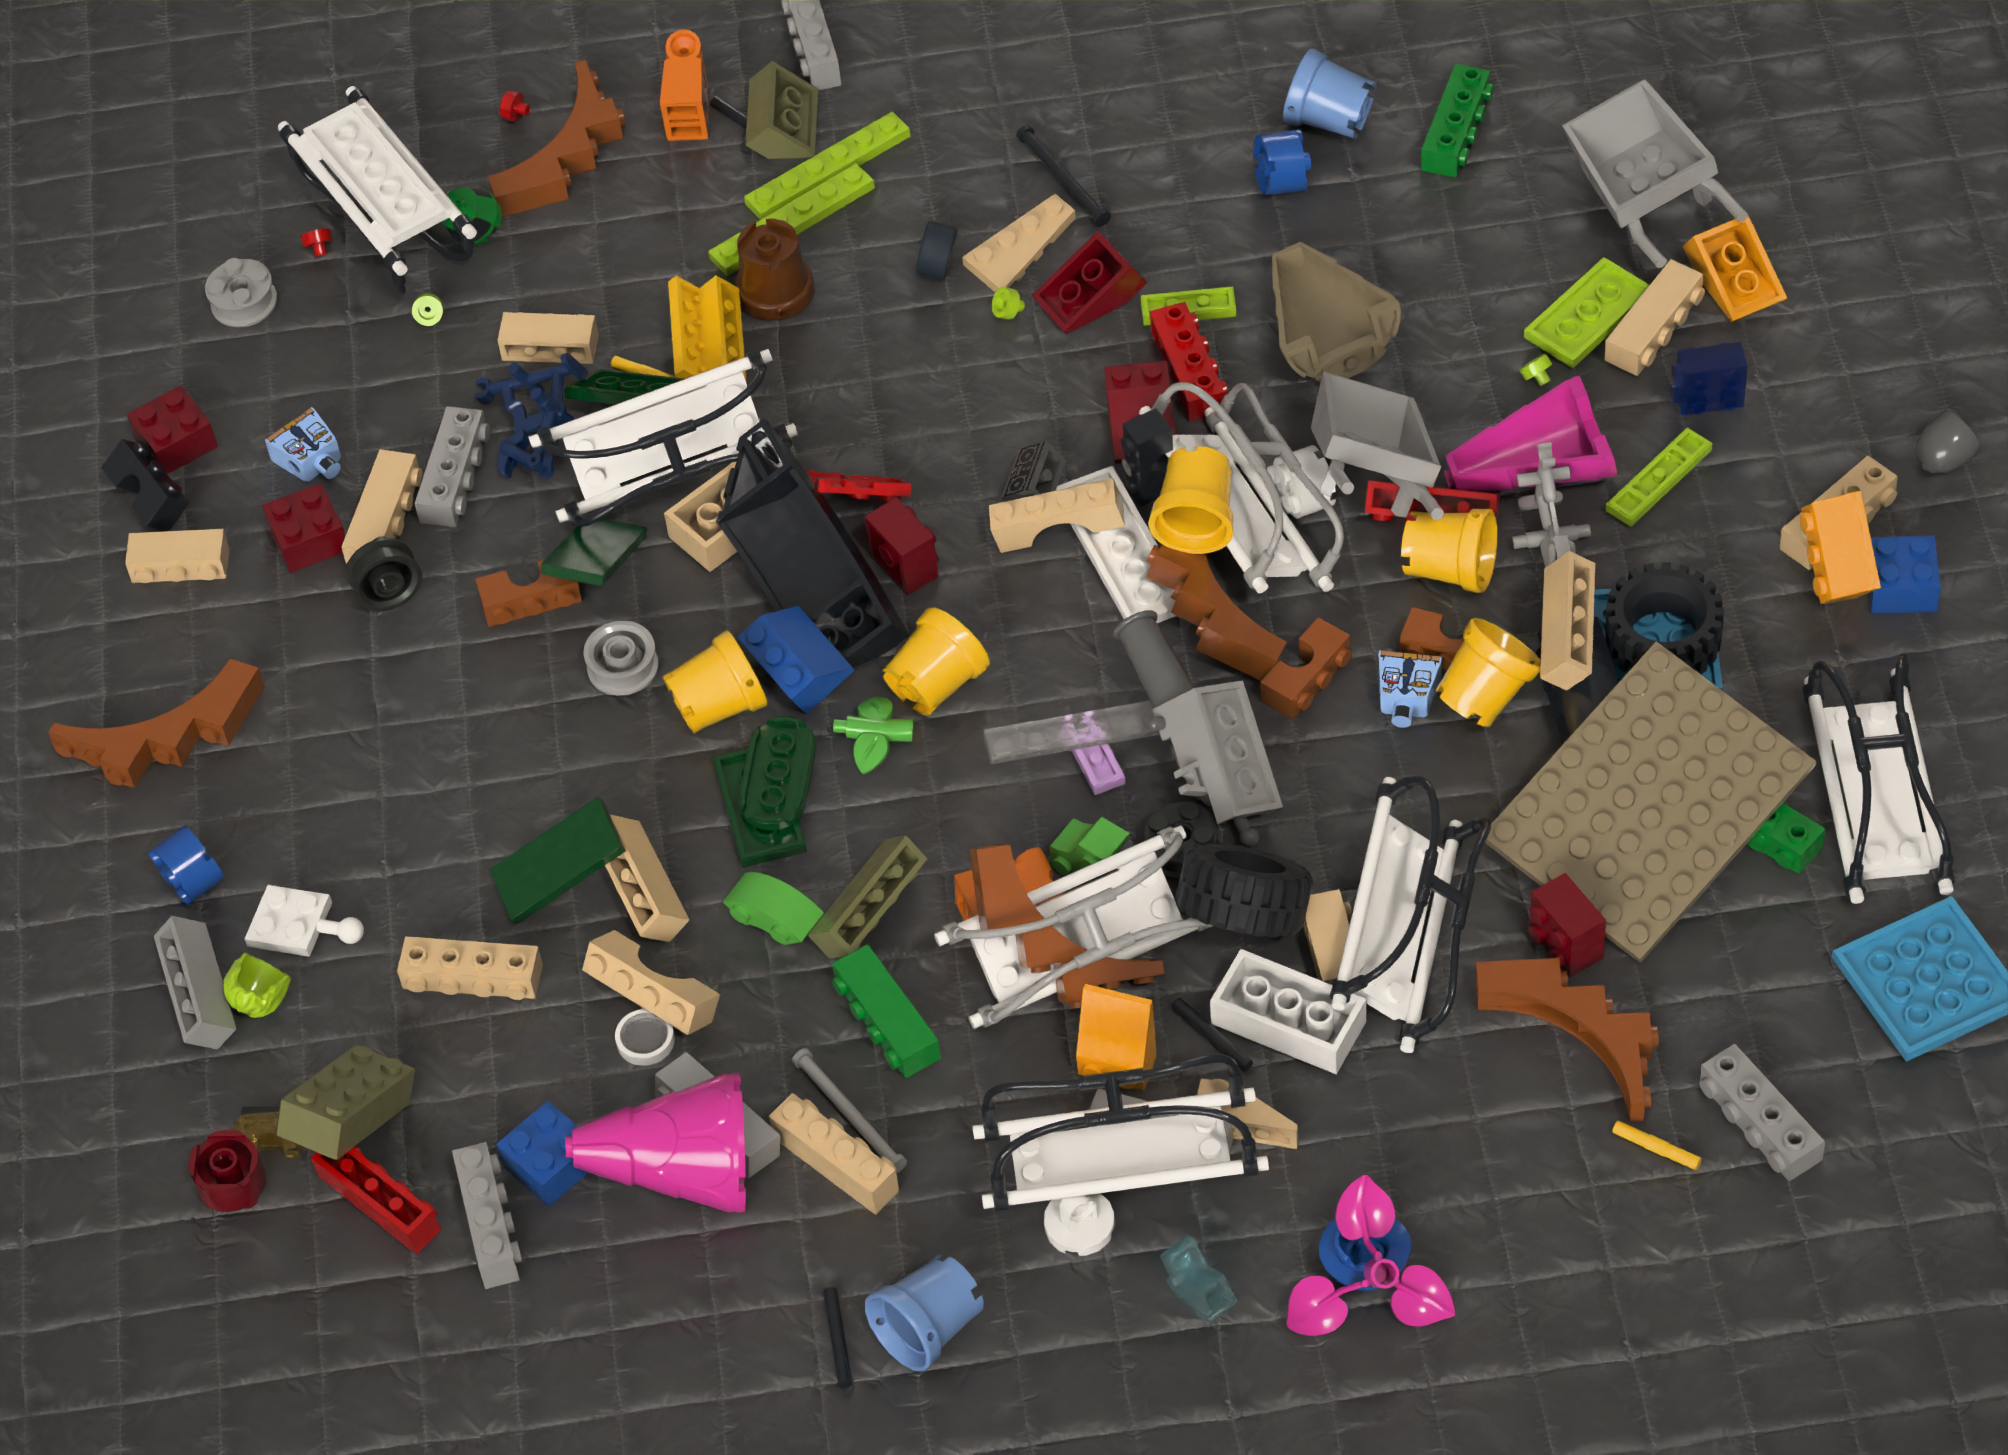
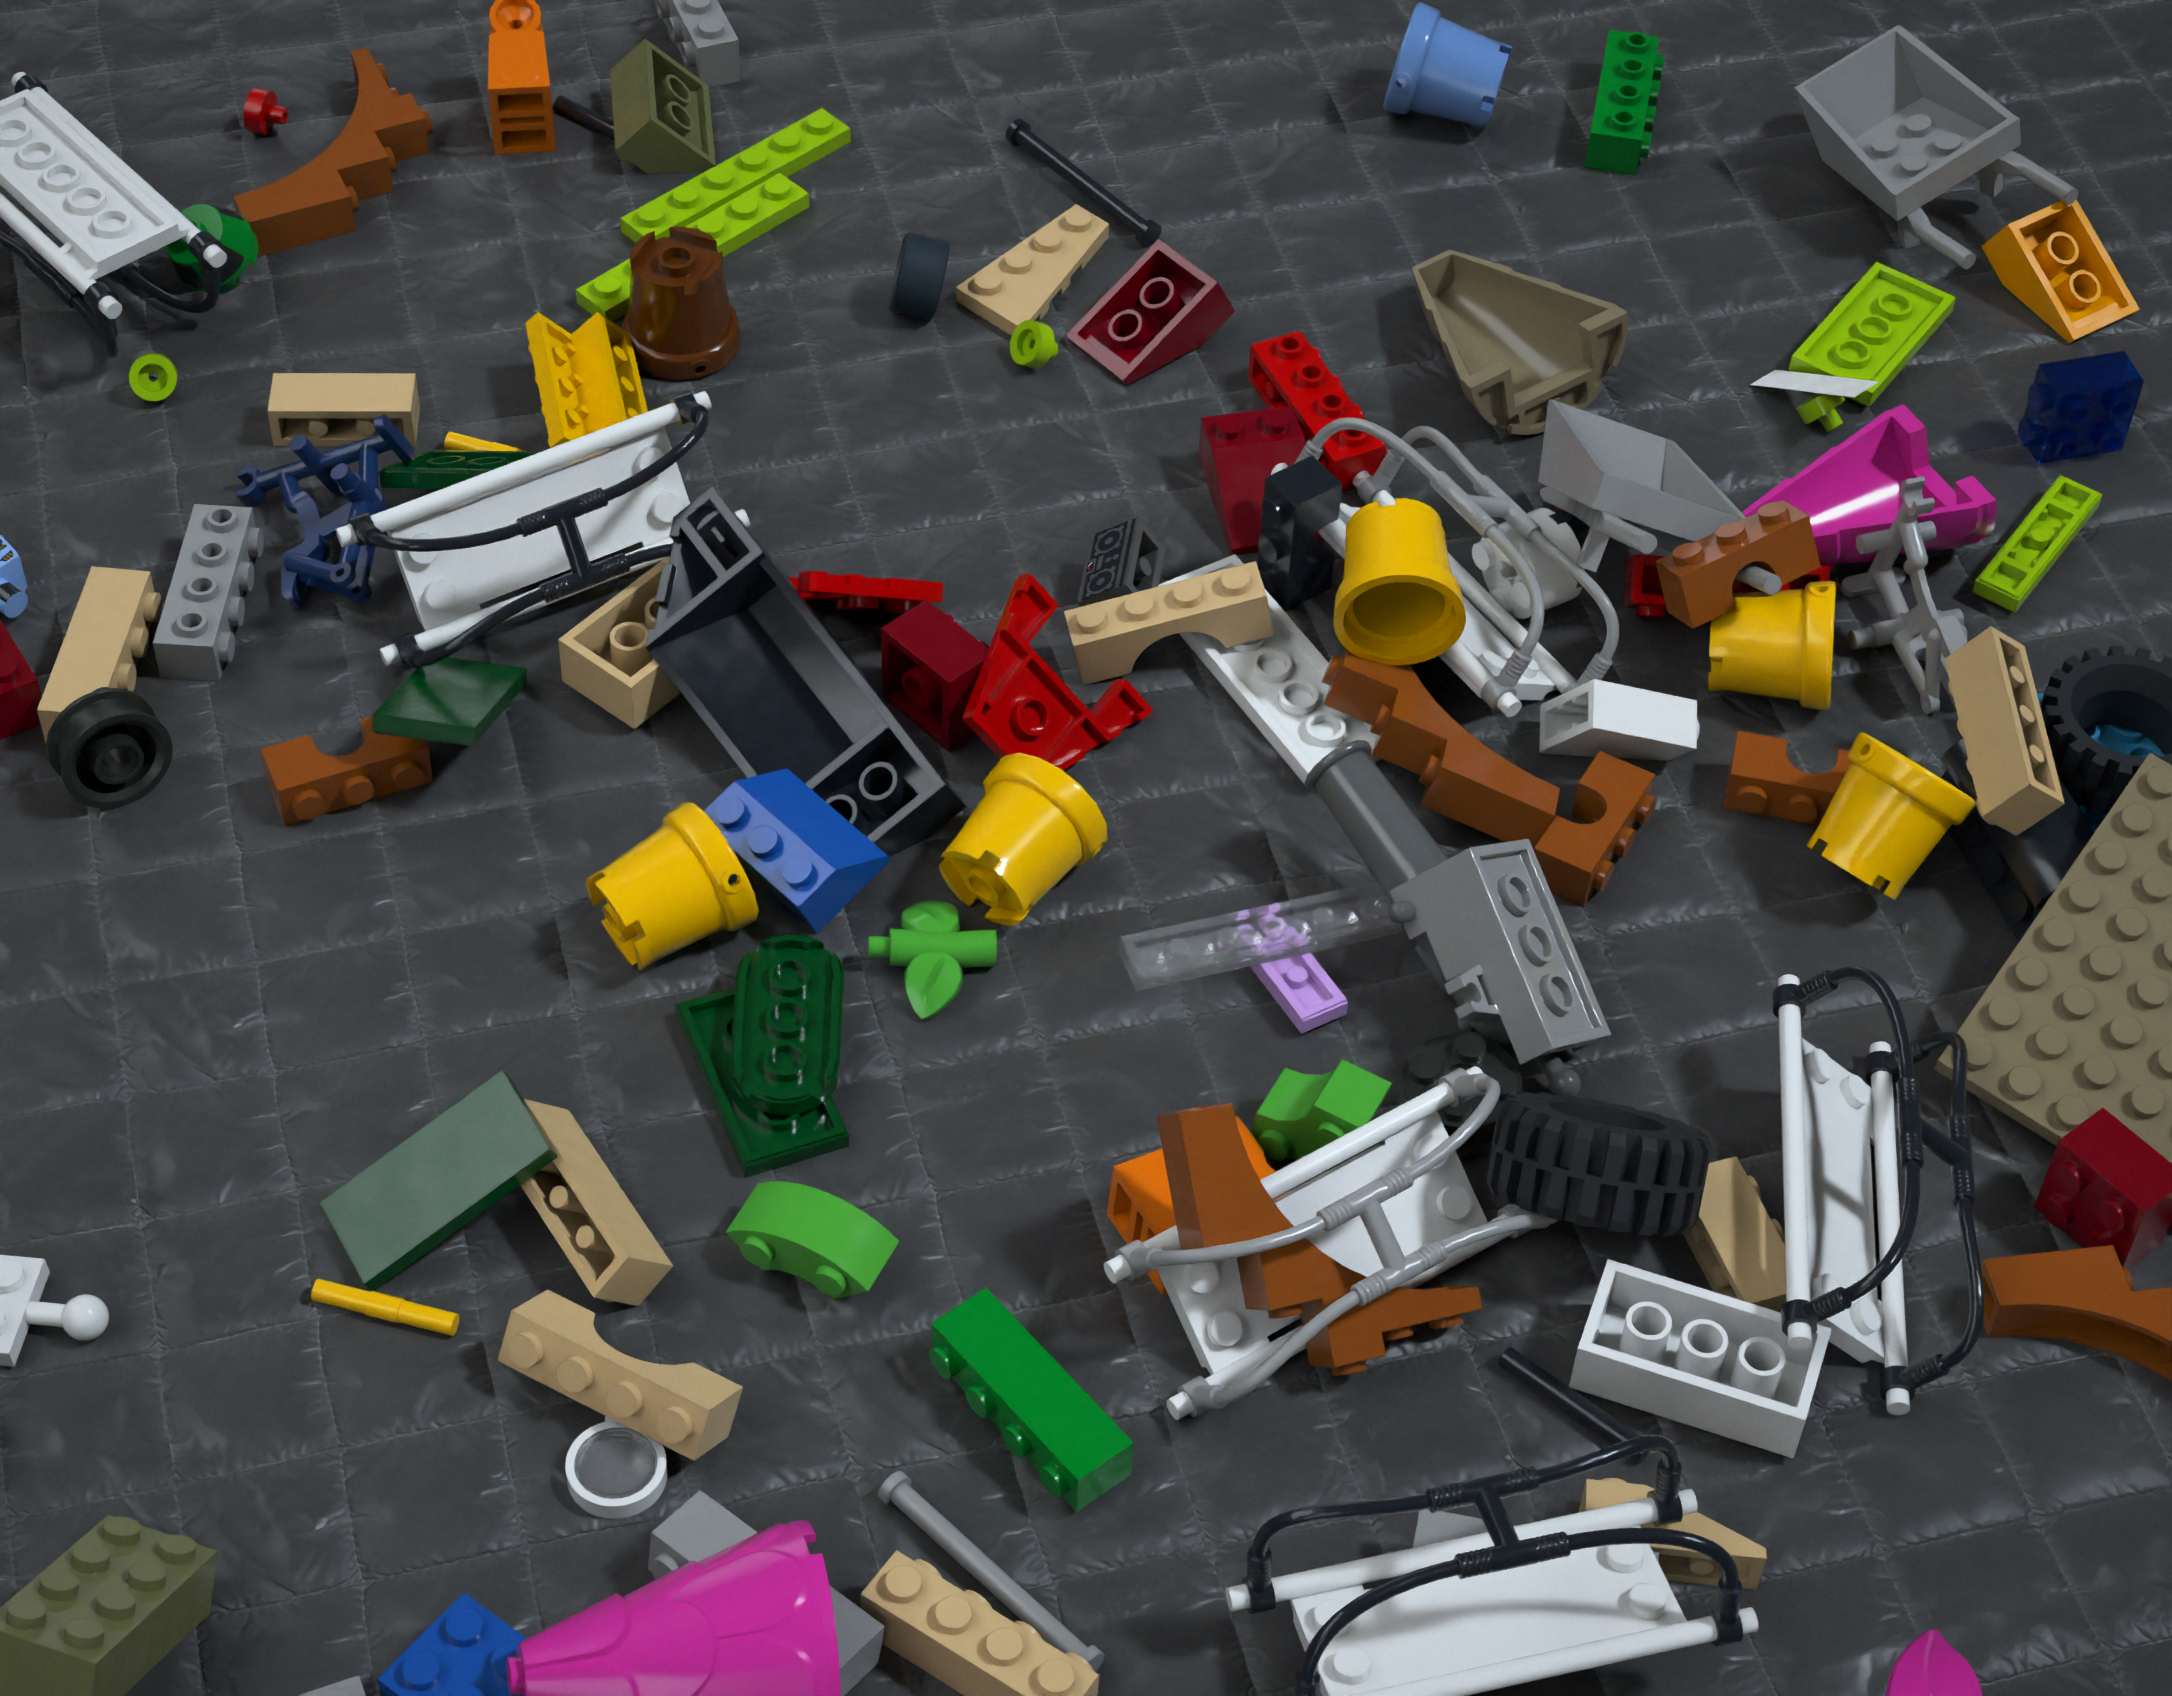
camera: 15 degrees left, 5 degrees down
(470, 968) = (299, 1368): tan brick -> none
(522, 934) = (385, 1307): none -> yellow piece
(617, 674) = (509, 859): light grey wheel -> none
(867, 897) = (968, 1213): olive brick -> none
(955, 574) = (1024, 703): none -> red wing
(1115, 1033) = (1433, 1413): light orange slope -> none
(1206, 303) = (1333, 337): lime tile -> none
(1281, 162) = (1395, 153): blue brick -> none
(1338, 598) = (1618, 722): none -> white slope
(1397, 500) = (1701, 573): none -> dark orange arch
(1407, 685) = (1750, 844): light blue torso -> none
(1531, 352) = (1814, 383): none -> white sticker
(1654, 317) = (1972, 336): tan brick -> none

